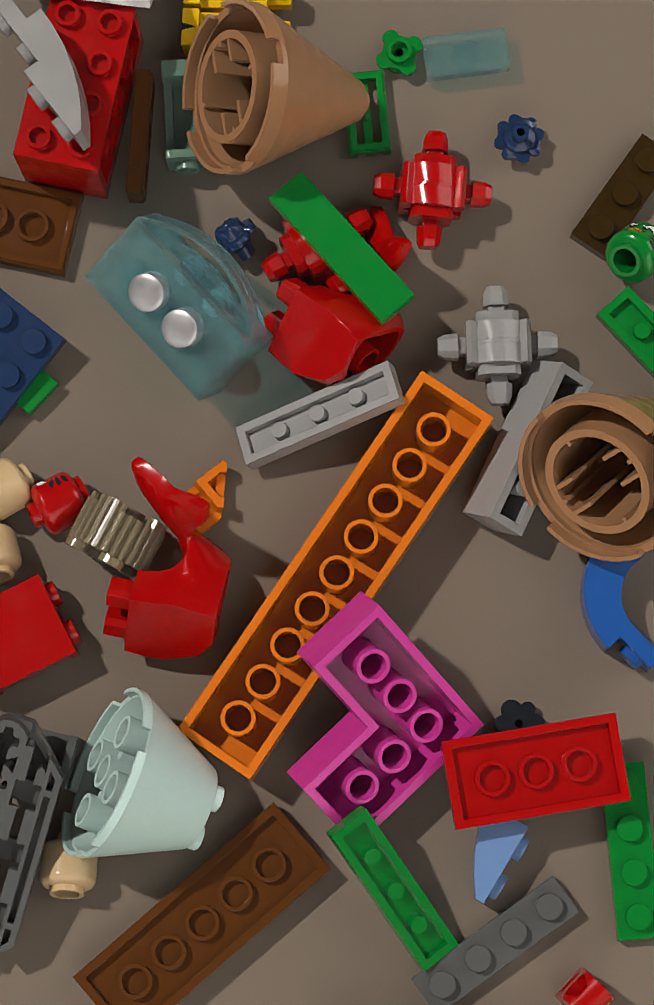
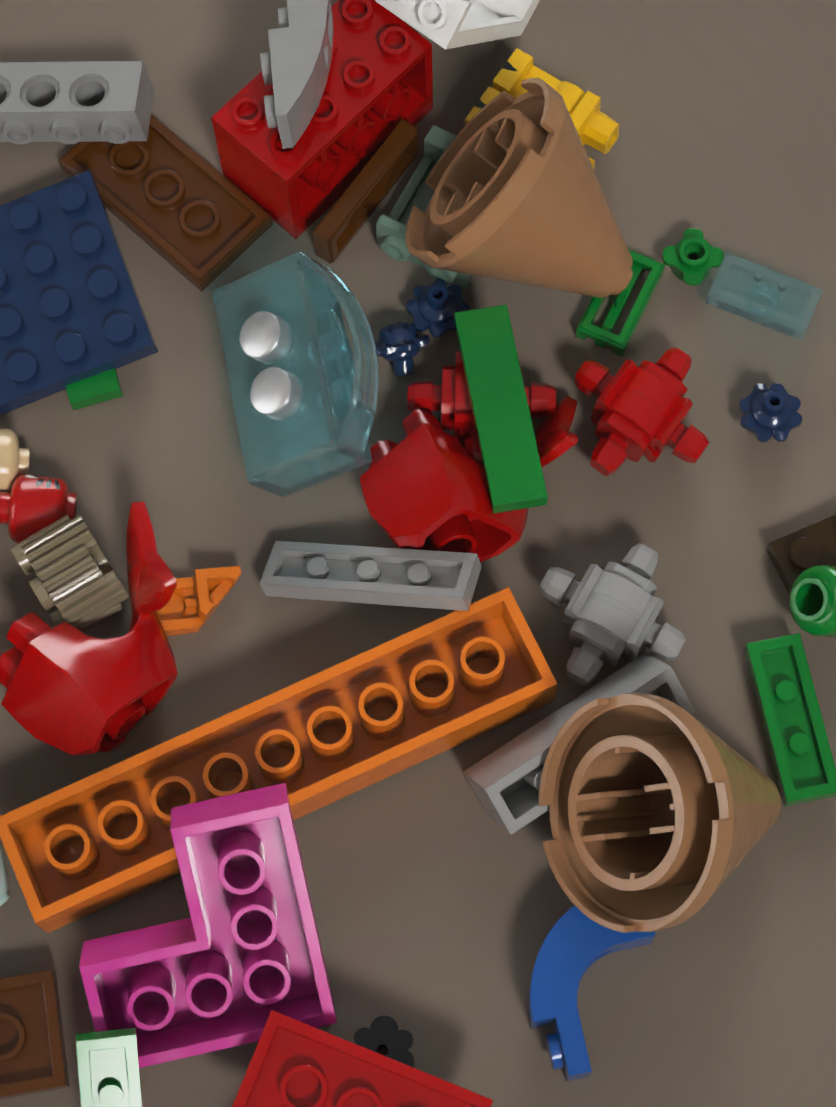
camera: 30 degrees right, 10 degrees down
(244, 194) = (436, 306): none -> dark blue plant

